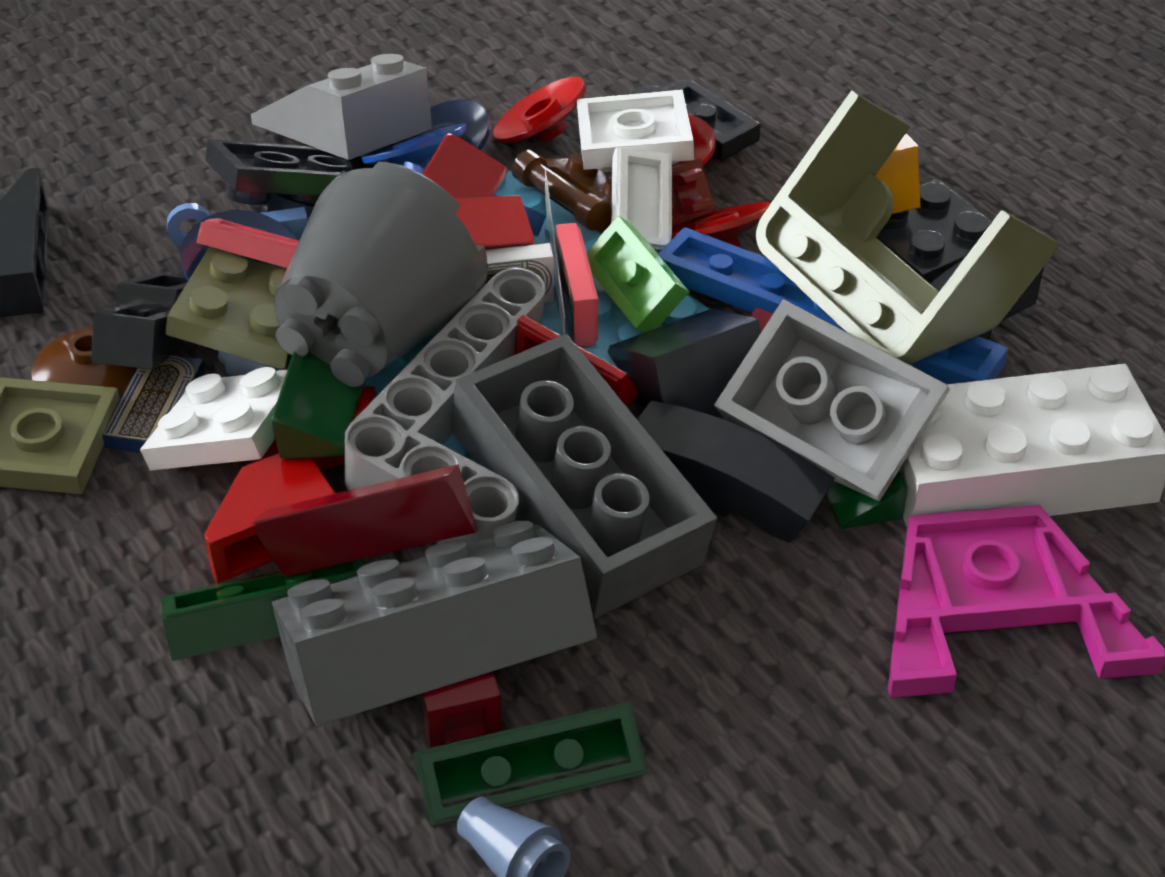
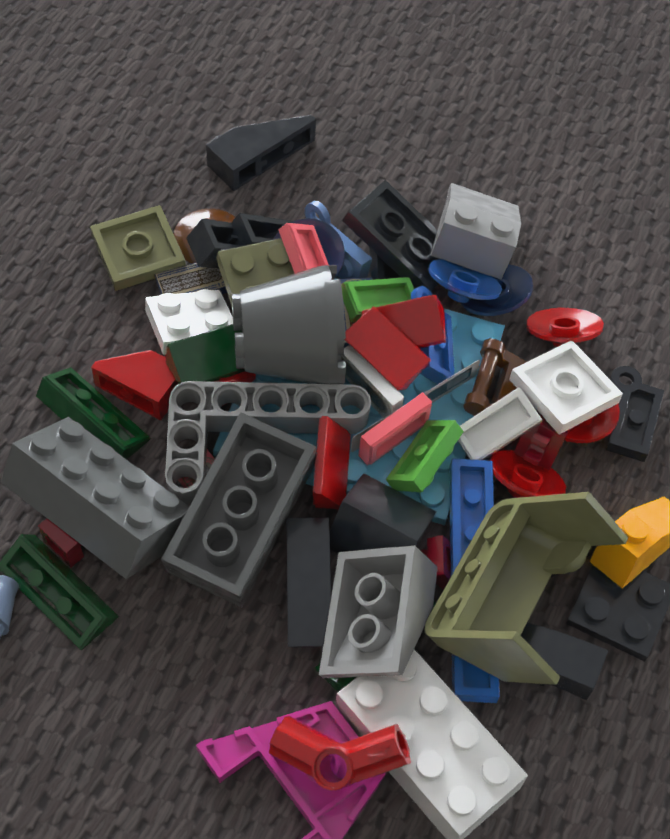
camera: 55 degrees right, 15 degrees up
(367, 521) = (137, 426): dark red slope -> none
(1031, 482) = (363, 756): none -> red piece

